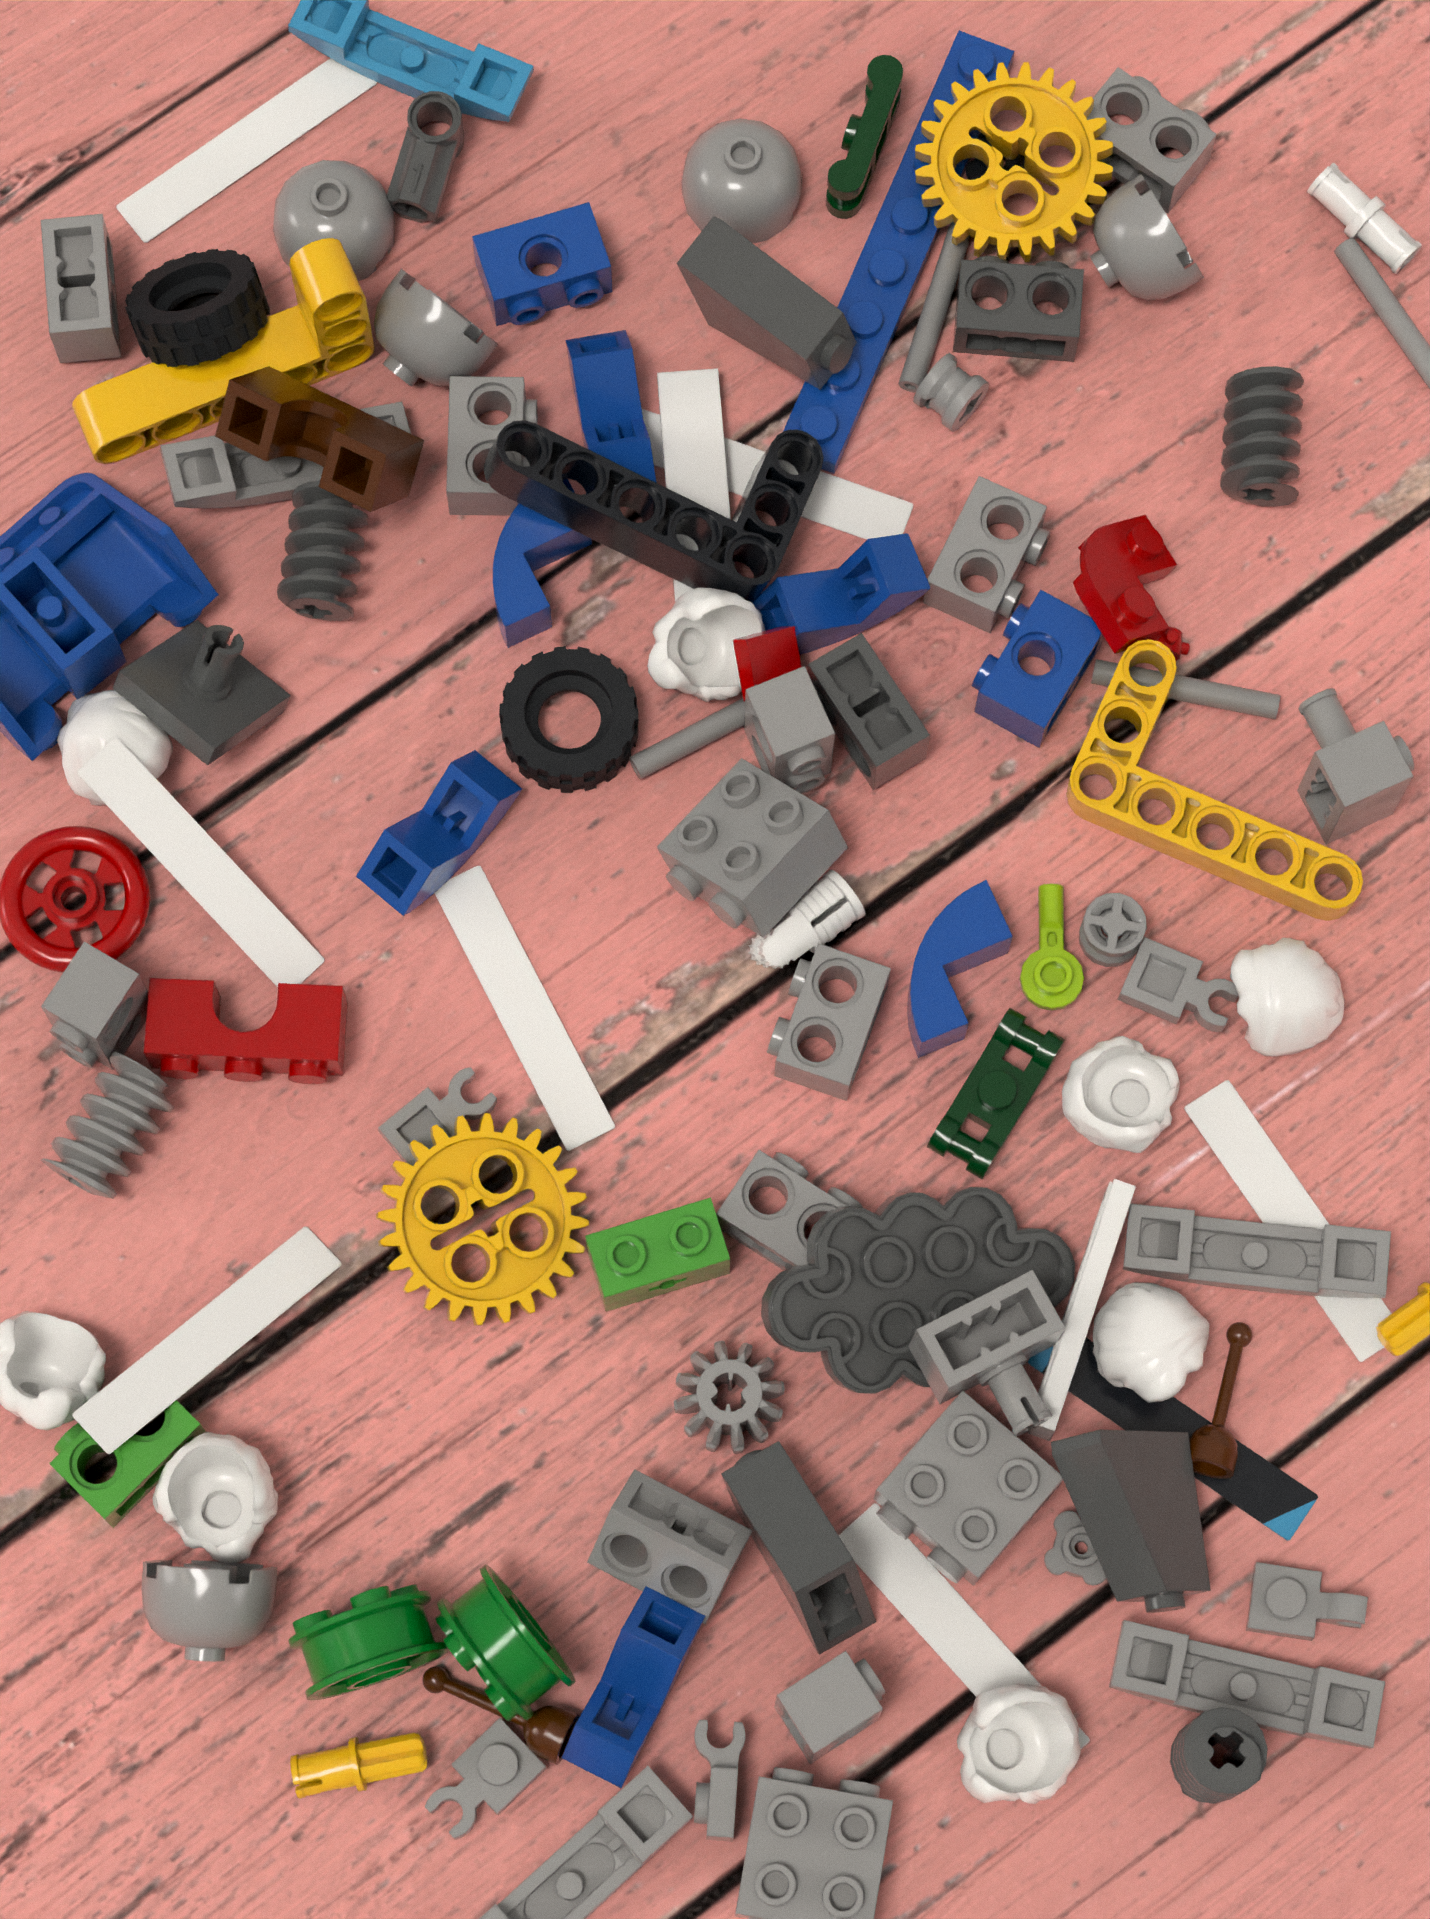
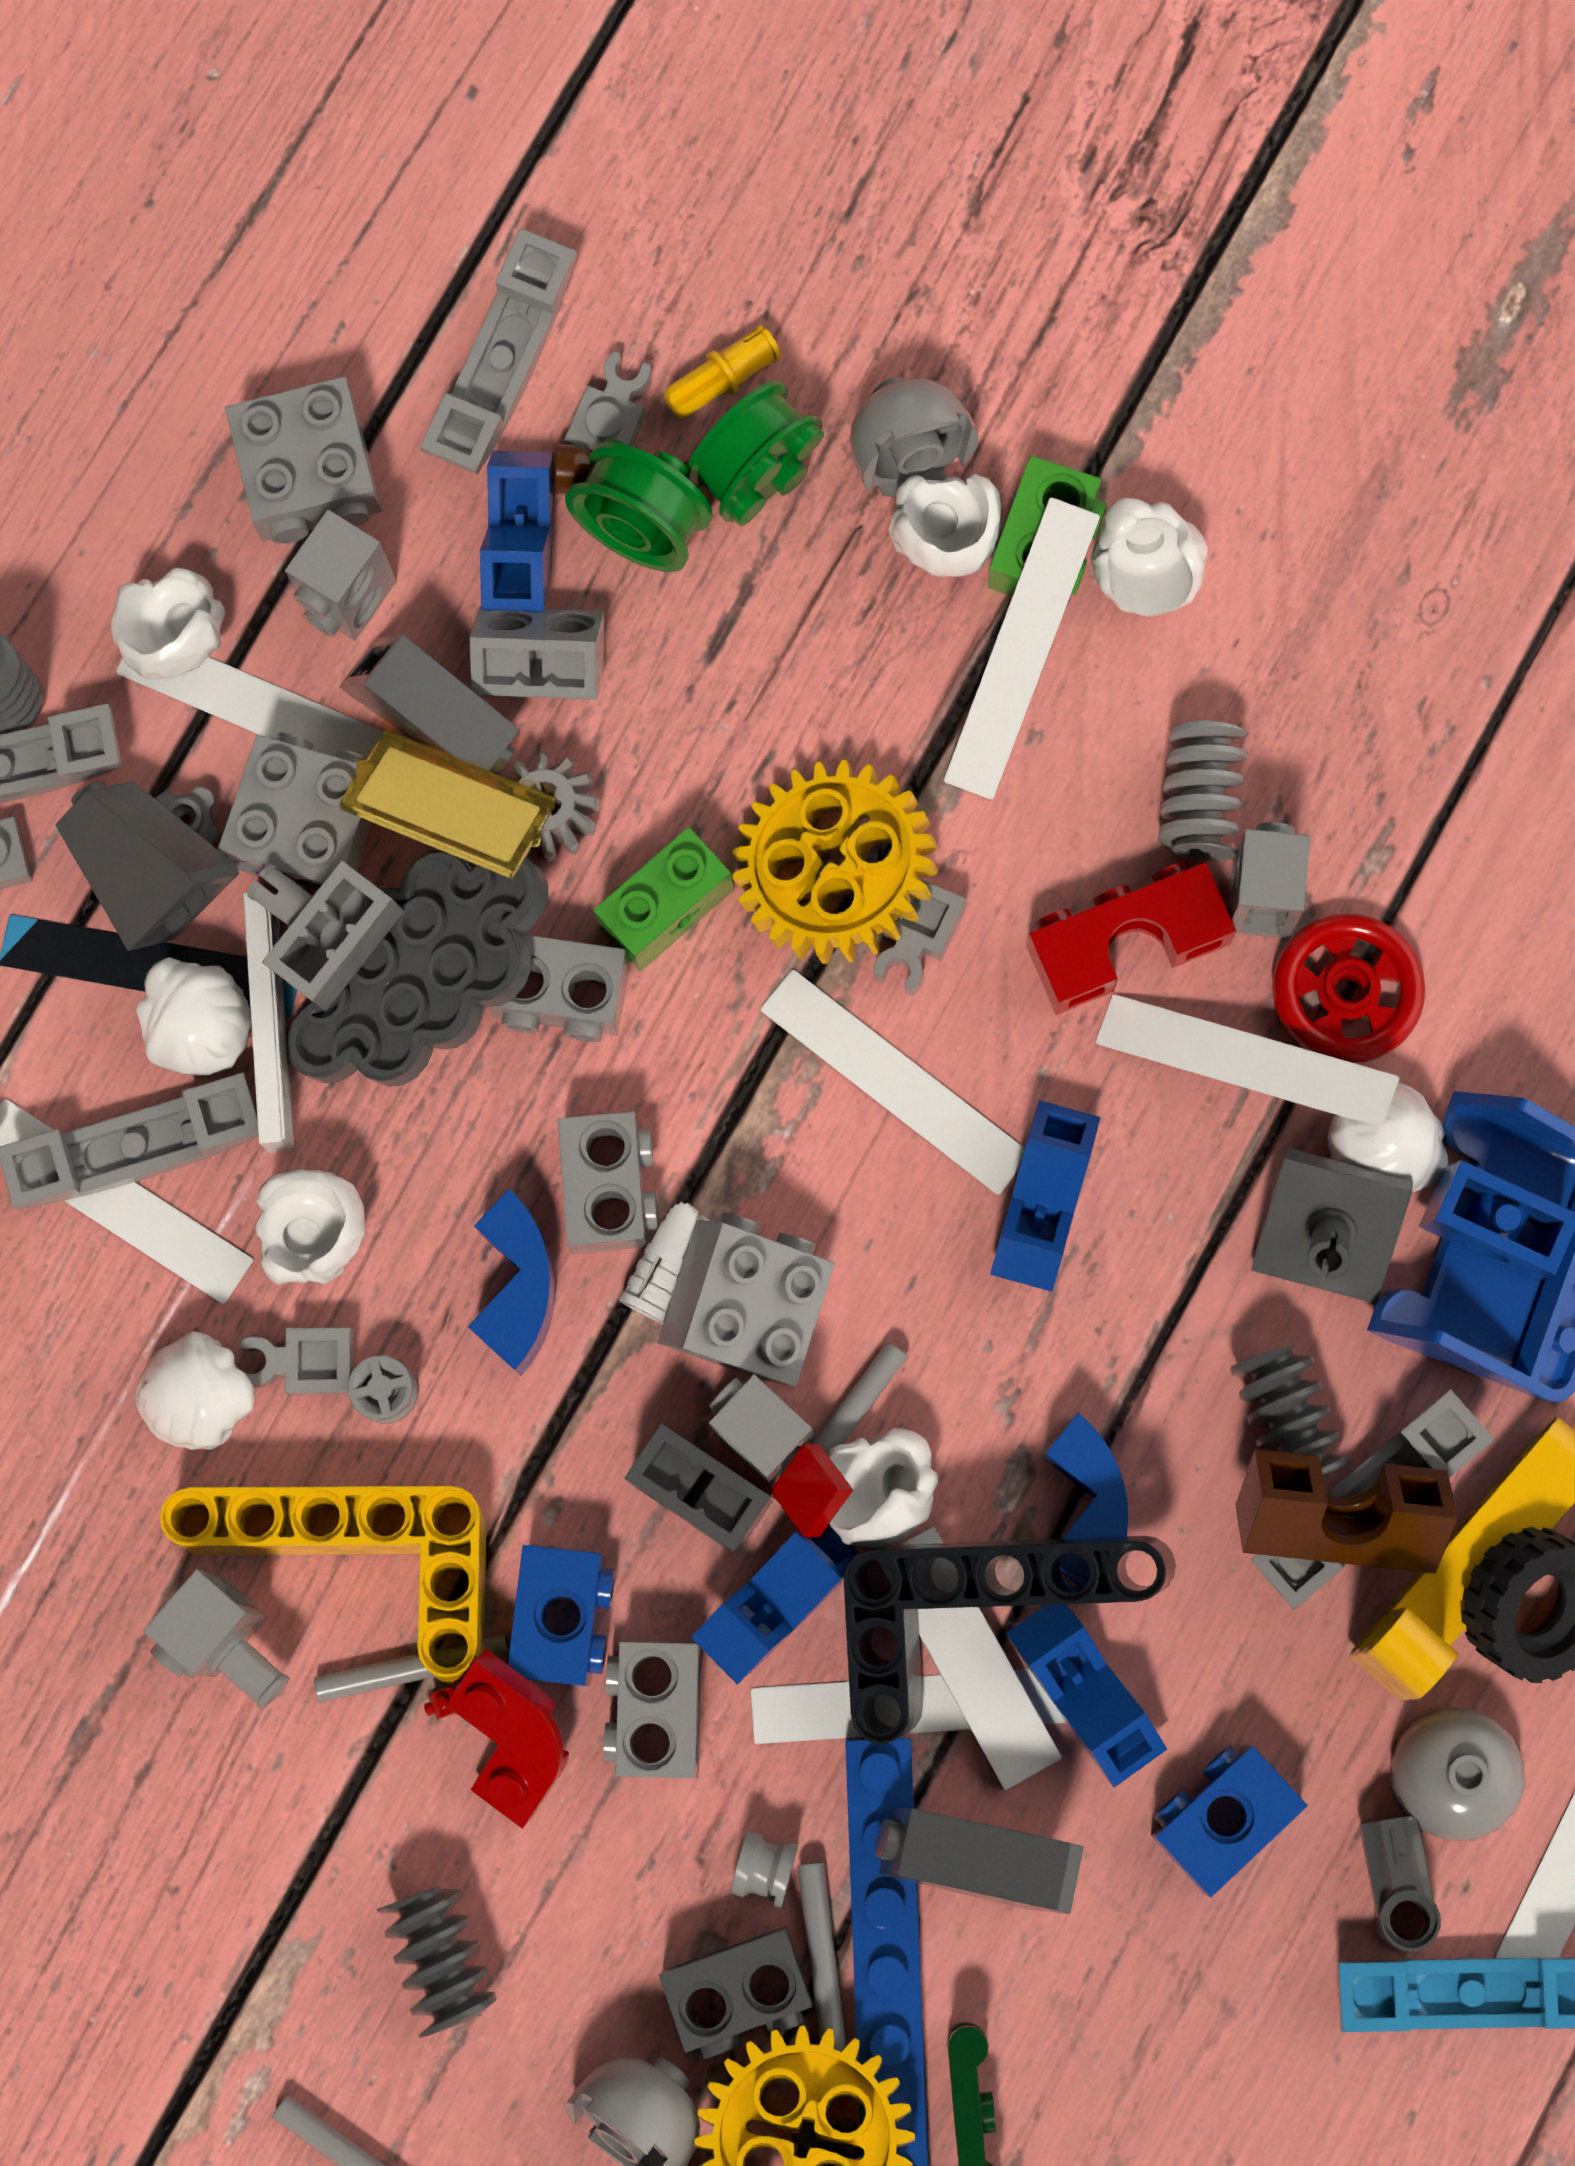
camera: 165 degrees right, 5 degrees up
(427, 335) = (1300, 1689): light grey cylinder -> none
(471, 440) = (1203, 1595): light grey brick -> none
(560, 672) = (990, 1315): black tyre -> none
(717, 1800) = (407, 475): light grey plate -> none
(743, 177) = (1075, 2009): light grey cylinder -> none
(822, 1416) = (448, 804): none -> clear yellow piece
(996, 1094) = (427, 1189): dark green plate -> none
(1051, 975) = (423, 1323): lime plate -> none
(1213, 1446) = (104, 956): reddish brown hinge -> none

